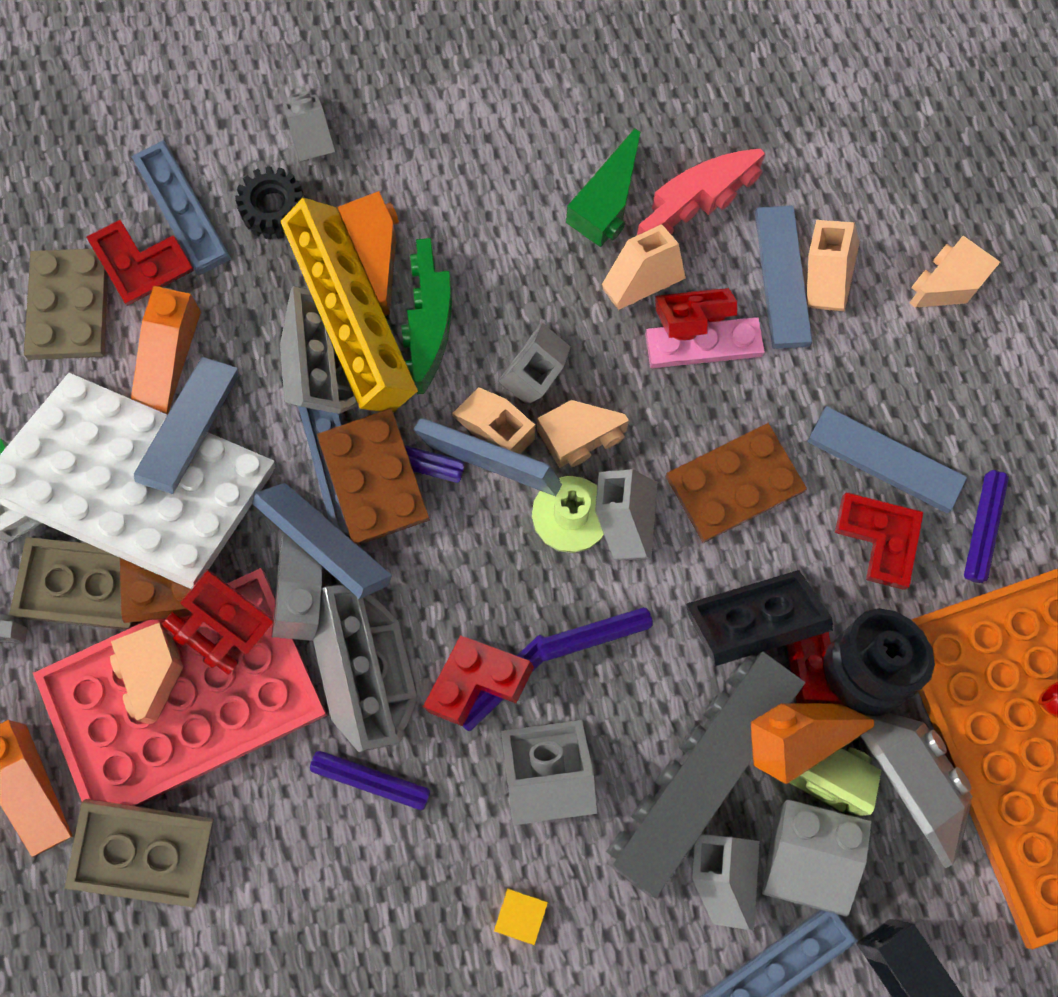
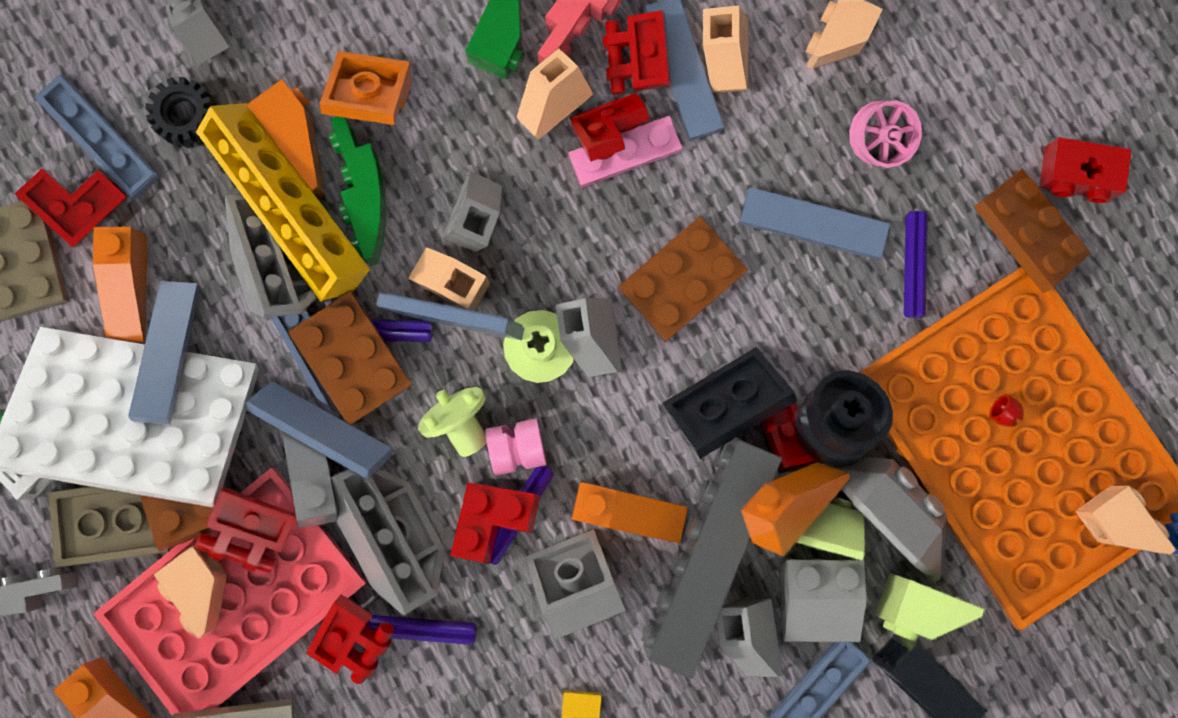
camera: 15 degrees left, 10 degrees up
(283, 760) = (341, 631): none -> red plate
(460, 218) = (366, 88): none -> orange plate
(467, 567) = (456, 419): none -> yellowish green piece
(521, 609) = (515, 447): none -> bright pink wheel
(578, 429) = (527, 265): light nougat slope -> none
(594, 634) = (586, 452): dark purple axle -> none
(624, 709) = (629, 512): none -> orange slope
(750, 252) = (648, 52): none -> red plate
(891, 530) = (833, 293): red plate -> none
(925, 891) = (922, 611): none -> yellowish green slope
(980, 384) = (885, 133): none -> bright pink wheel

